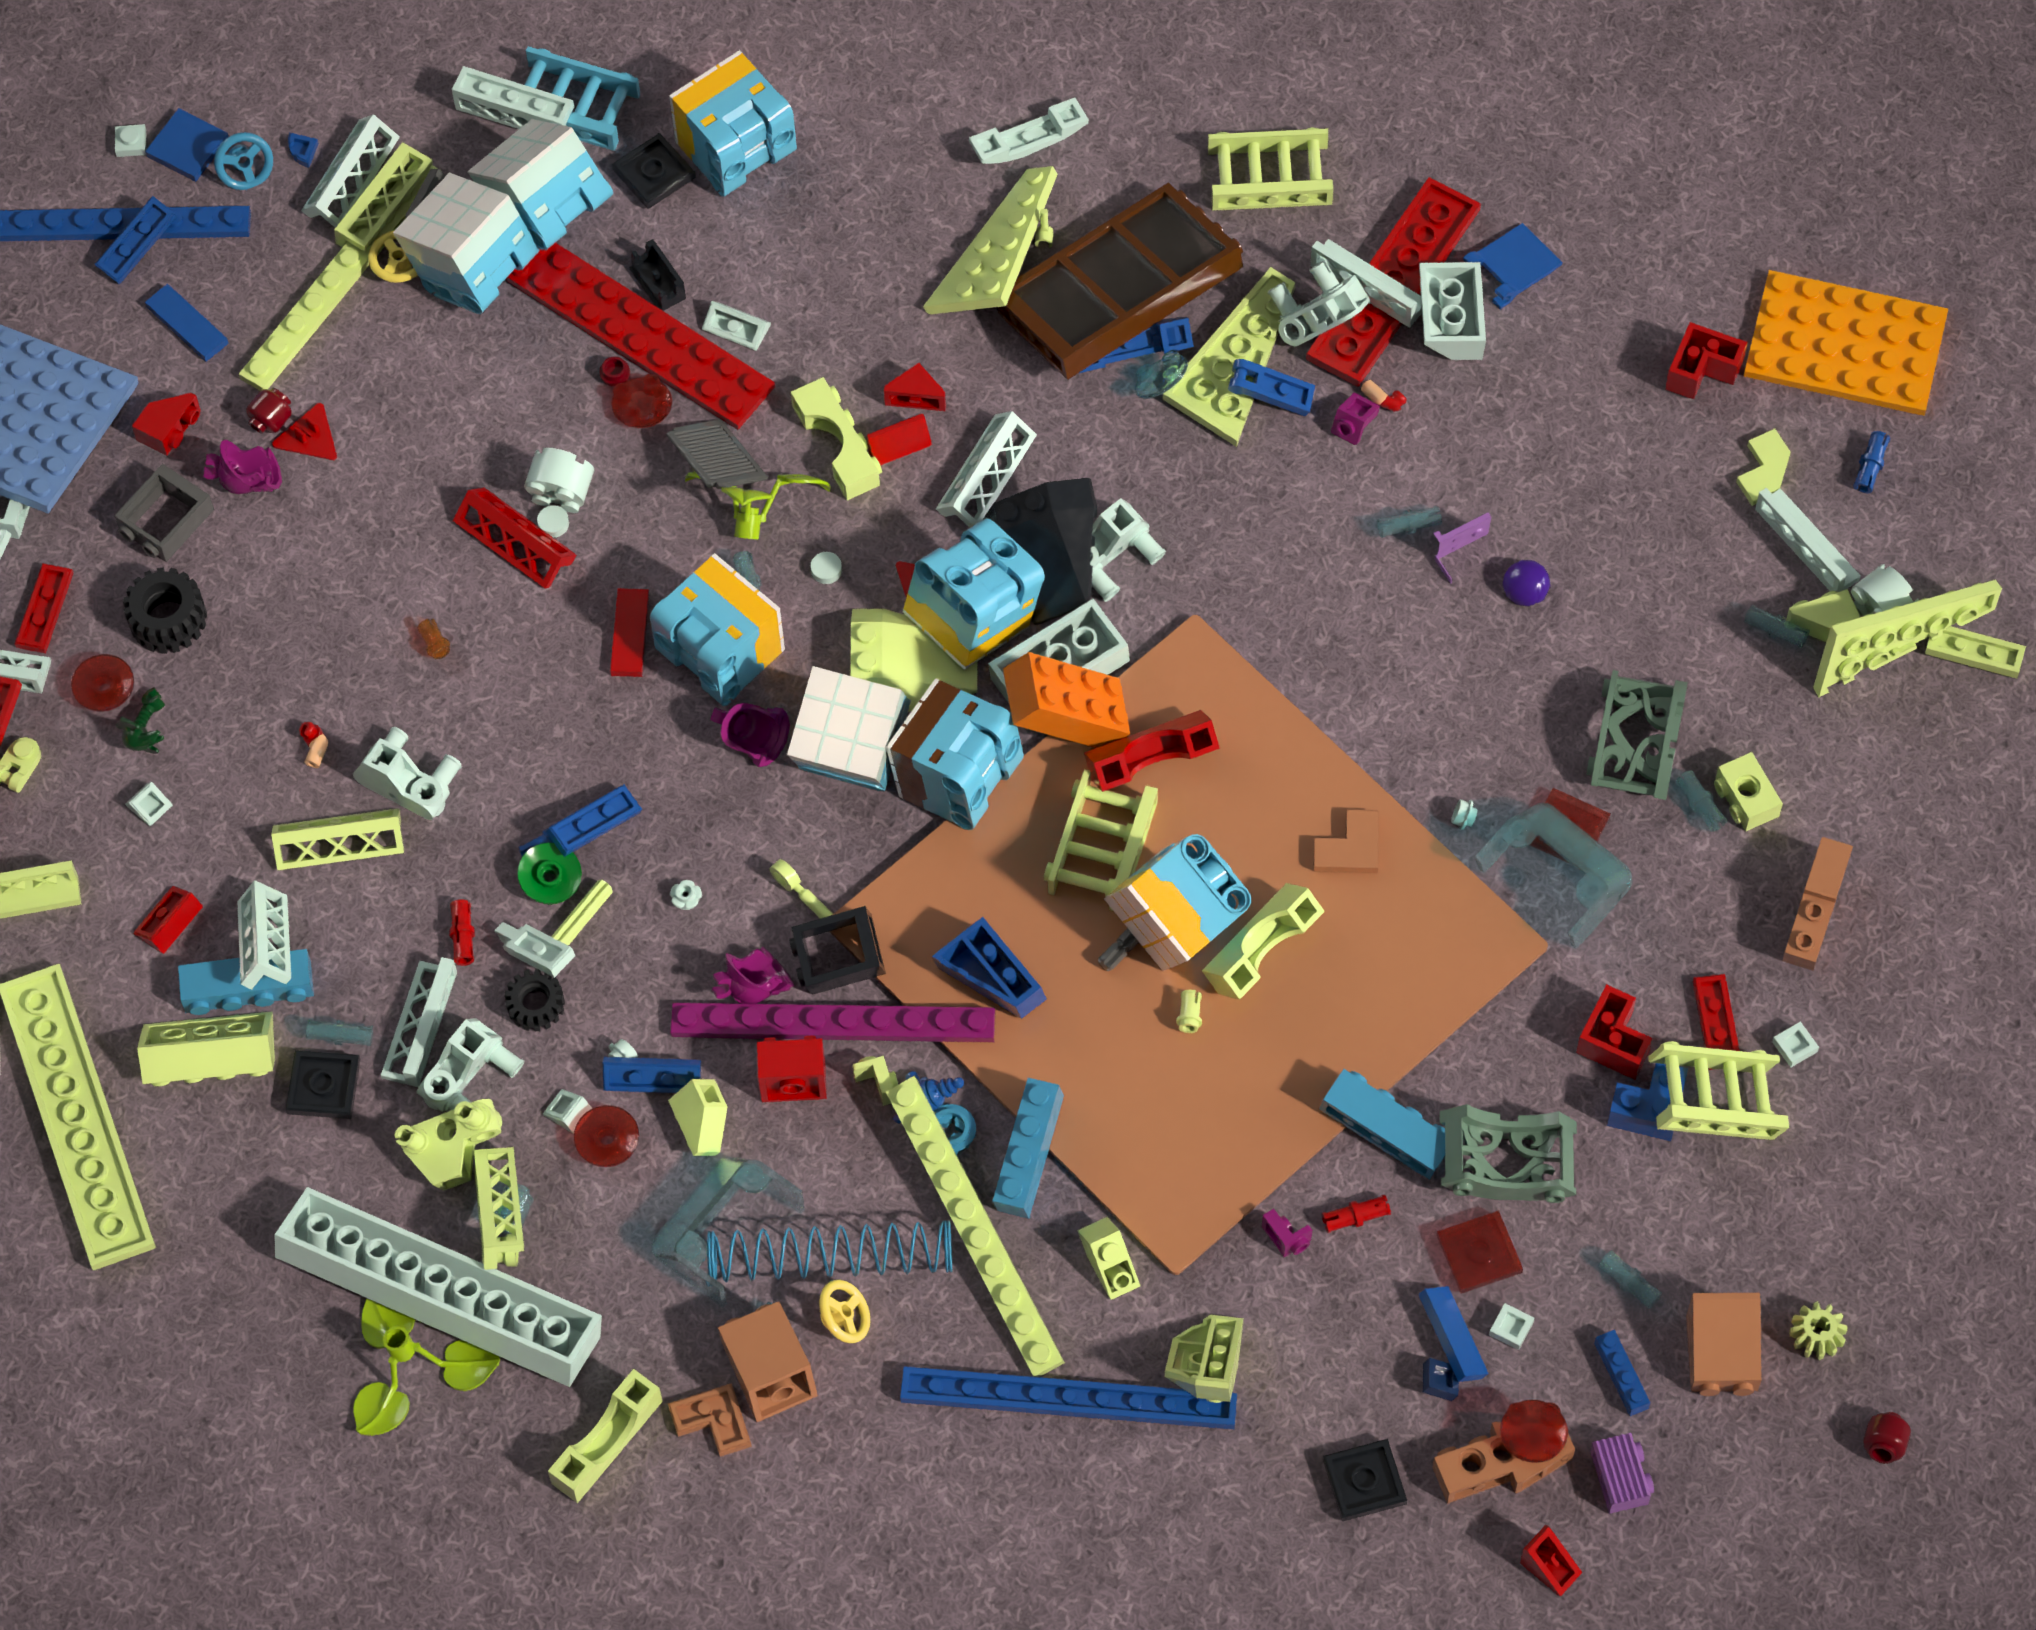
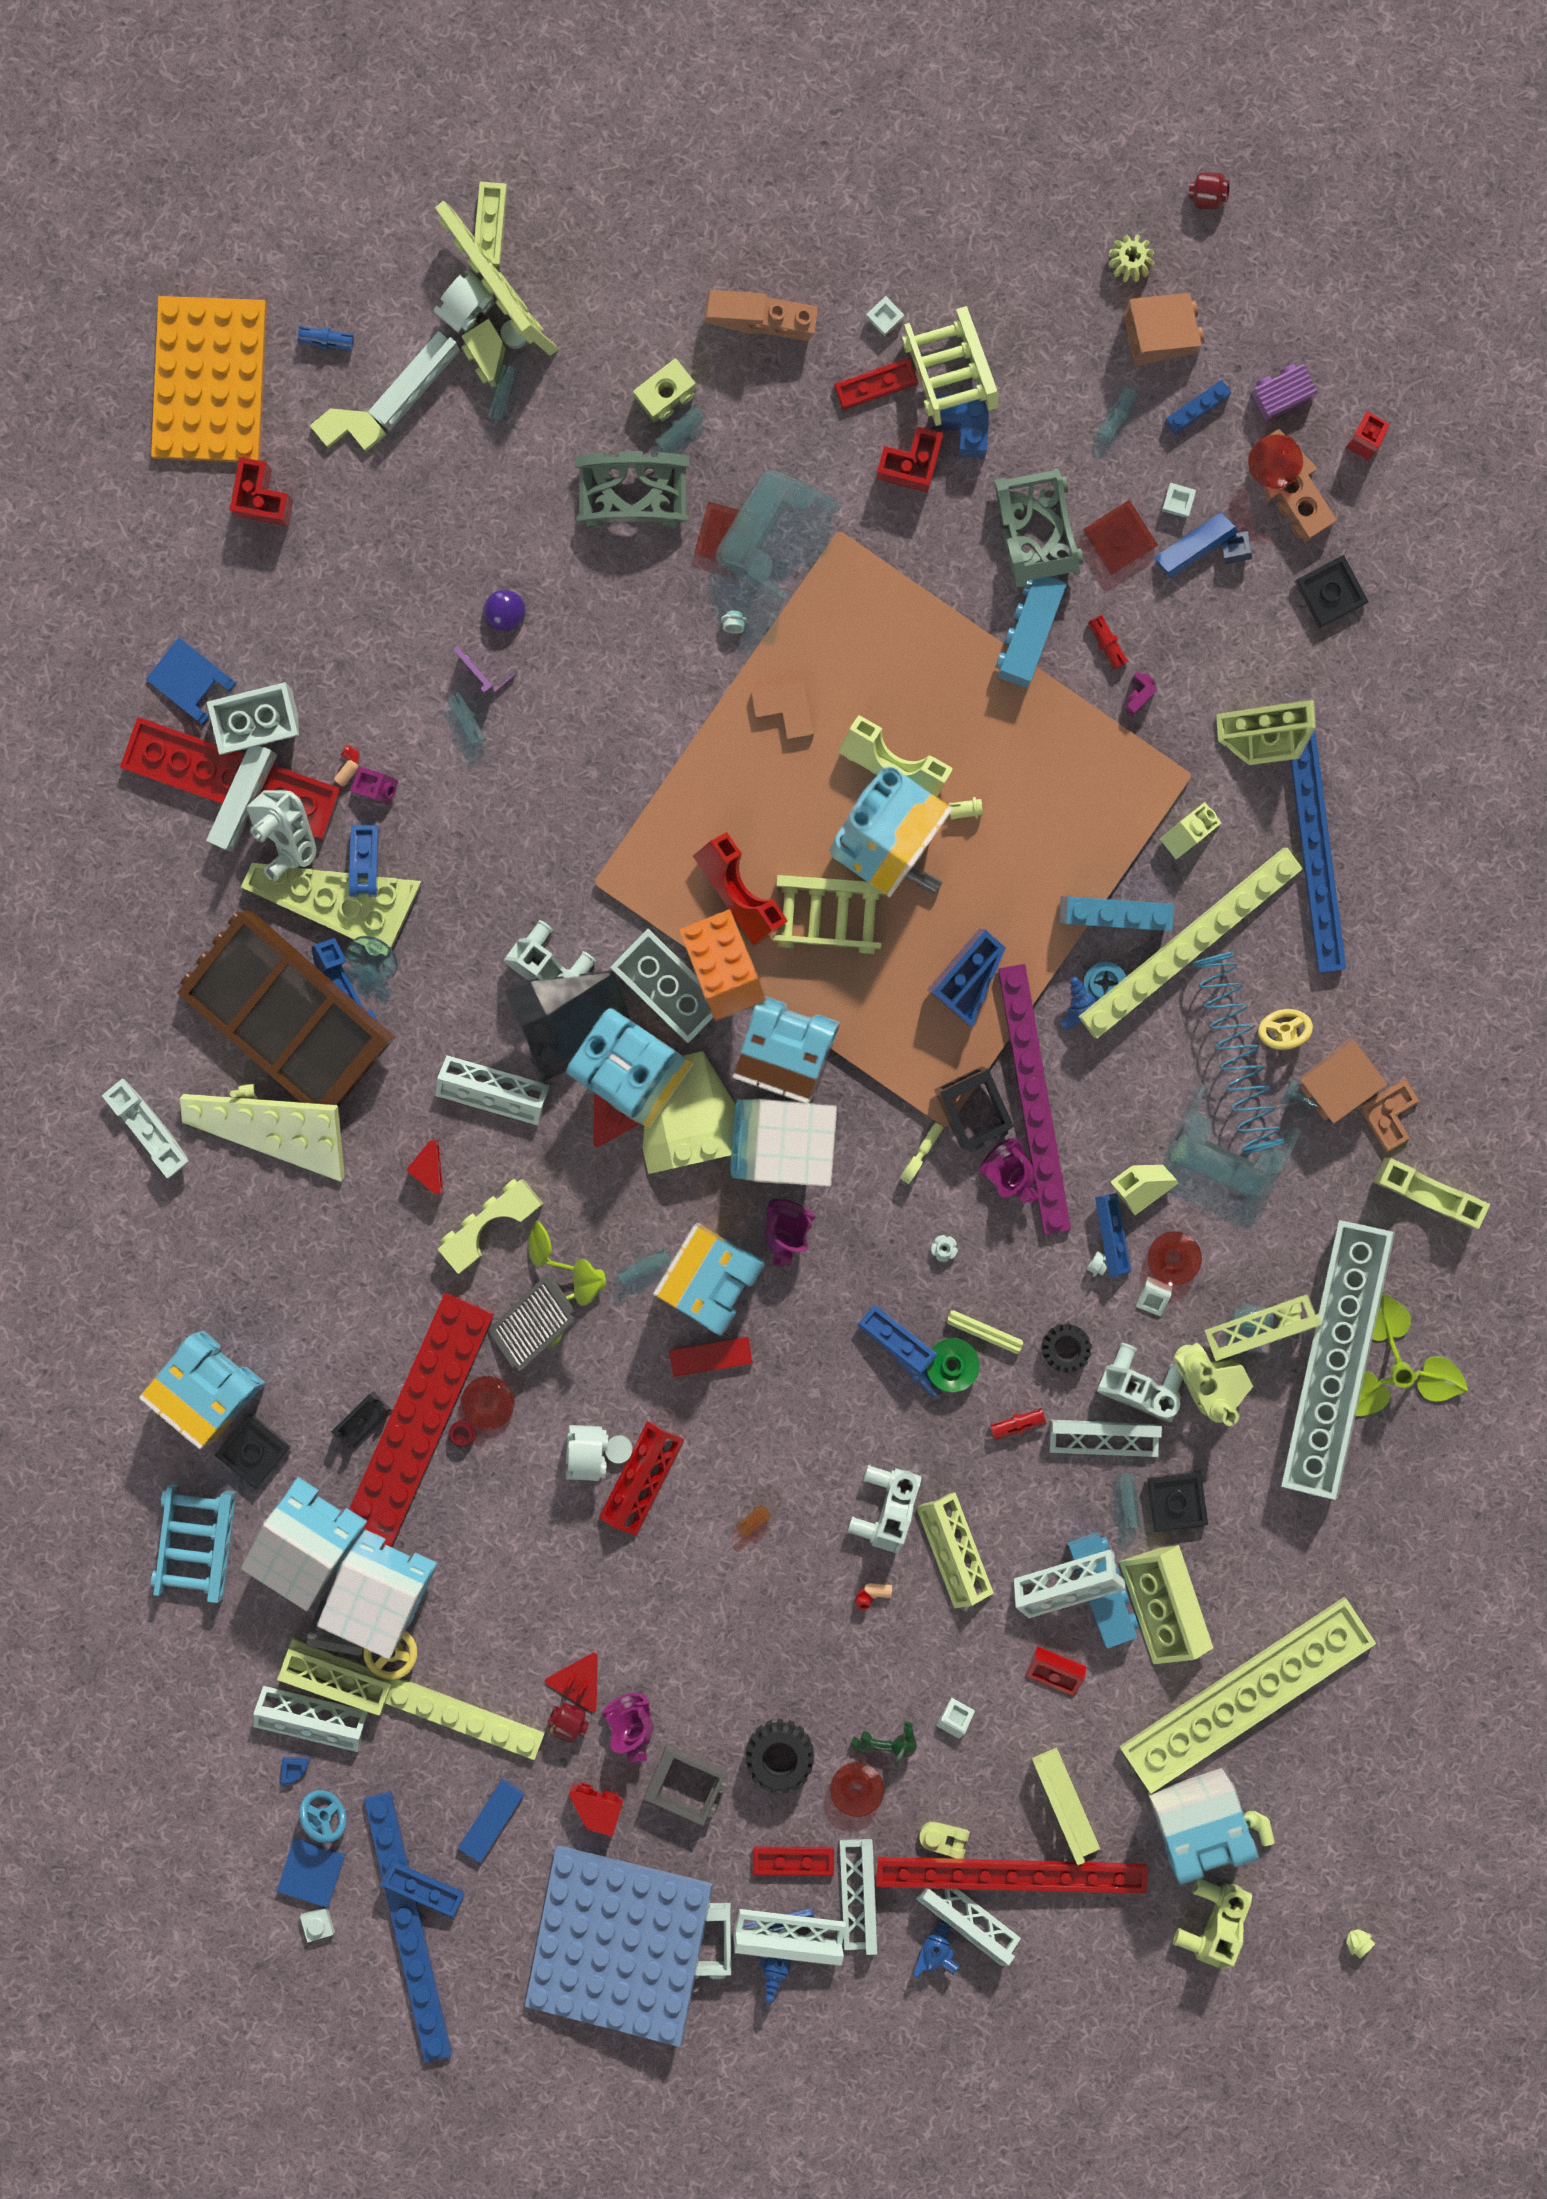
camera: 105 degrees left, 25 degrees up
(509, 98) = (215, 1592): light aqua fence -> none
(535, 948) = (1025, 1358): light aqua hinge -> none
(735, 325) = (392, 1340): light aqua slope -> none
(791, 1069) = (1090, 1120): red container -> none
(826, 567) = (614, 1205): light aqua tile -> none
(877, 1068) = (1077, 1043): yellowish green bracket -> none
(899, 439) = (480, 1171): red slope -> none
(1270, 194) = (157, 889): yellowish green fence -> none

